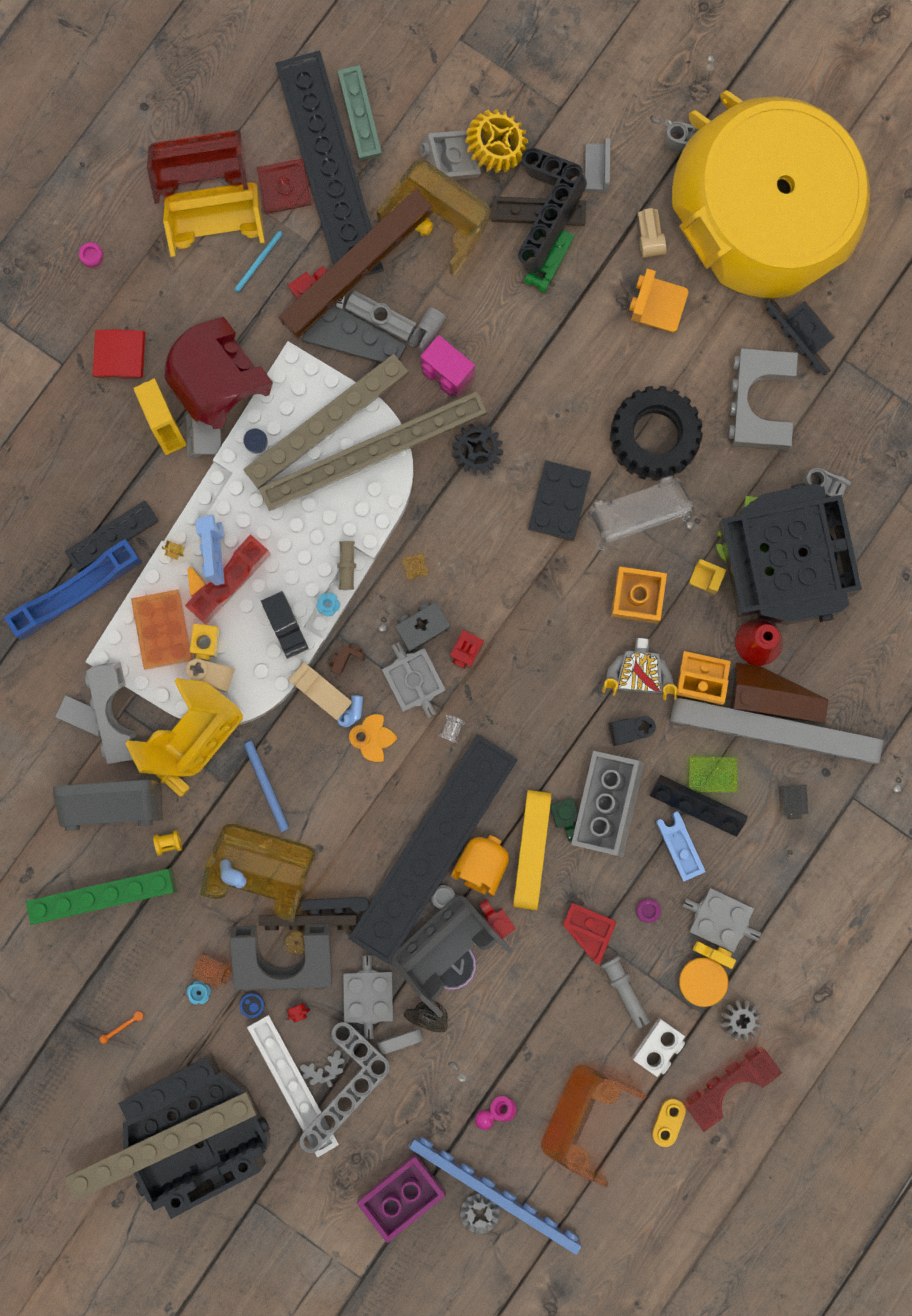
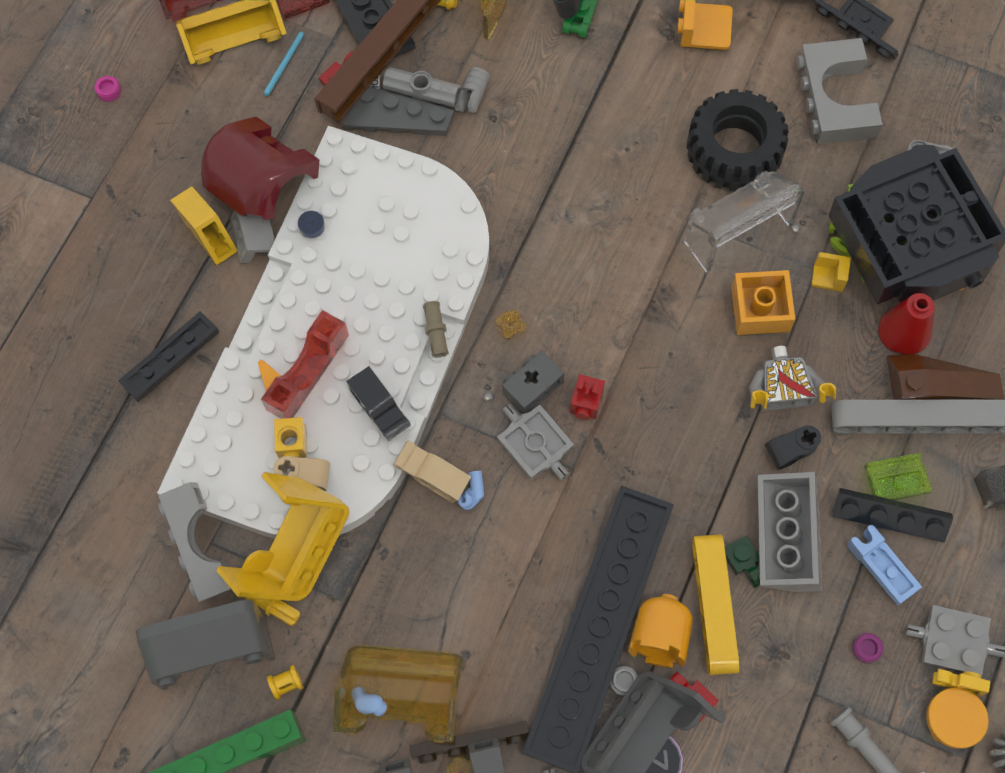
camera: 10 degrees left, 15 degrees down
(48, 607) = (96, 451): blue arch -> none
(78, 715) = (158, 557): light grey tile -> none
(119, 353) = (150, 174): red slope -> none
(161, 629) = (239, 437): clear orange plate -> none
(173, 550) = (239, 350): clear yellow plate -> none
(211, 548) = (280, 336): light blue plate -> none
(266, 786) = (390, 595): medium blue bar -> none
(326, 421) = (382, 192): dark tan plate -> none
(334, 604) = (427, 379): medium azure plate -> none
(337, 905) = (499, 715): black hinge -> none
(340, 660) = (447, 437): reddish brown bracket -> none
(373, 451) = (438, 210): dark tan plate -> none
(376, 737) = (506, 515): light orange plate -> none
(447, 366) = (502, 116): dark pink brick -> none
(452, 729) = (590, 486): clear bush -> none
(486, 454) = (552, 204): black gear -> none
(559, 500) = (651, 229): black plate -> none
(589, 930) = (806, 684): red wing -> none
(703, 678) = (858, 375): light orange brick -> none

